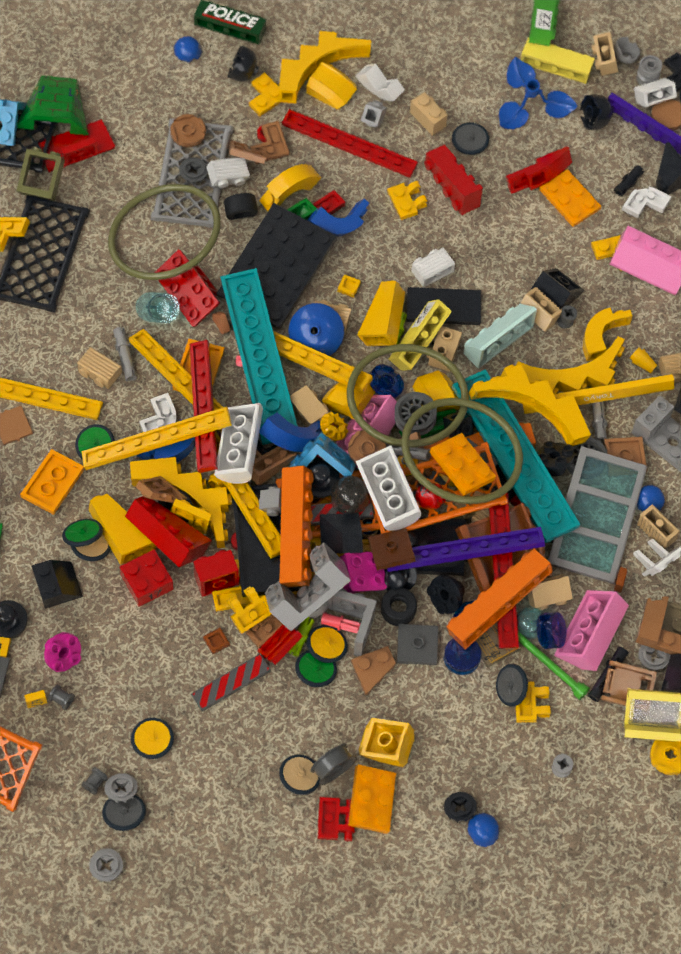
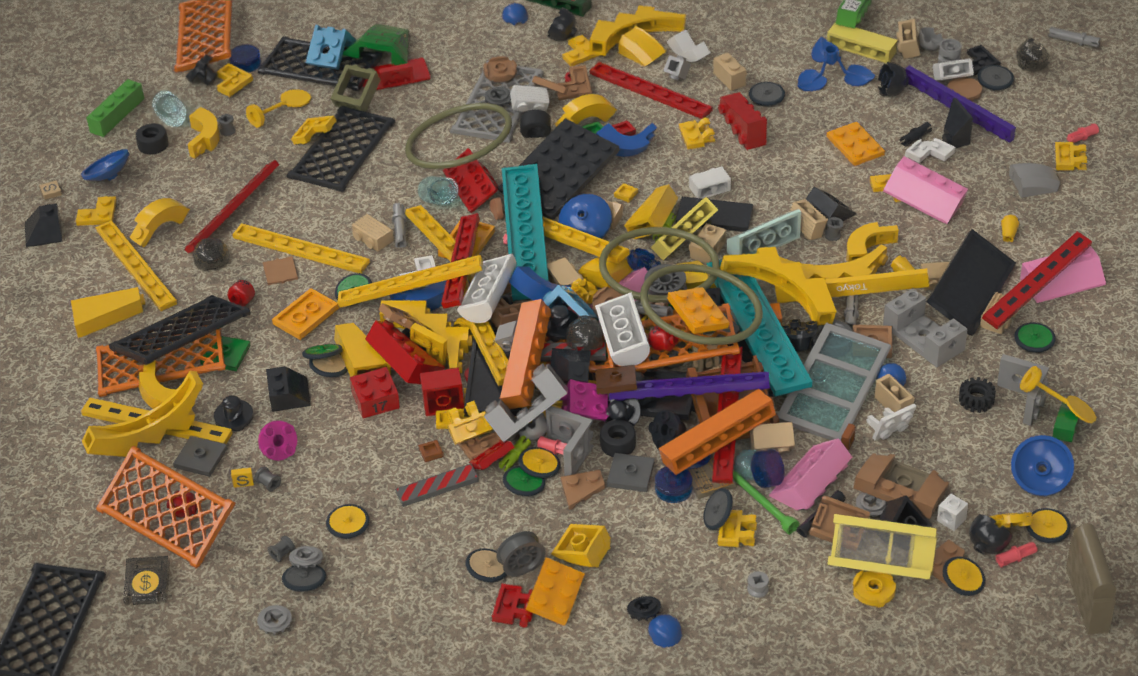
camera: 15 degrees right, 20 degrees down
(543, 171) = (829, 119): red slope -> none

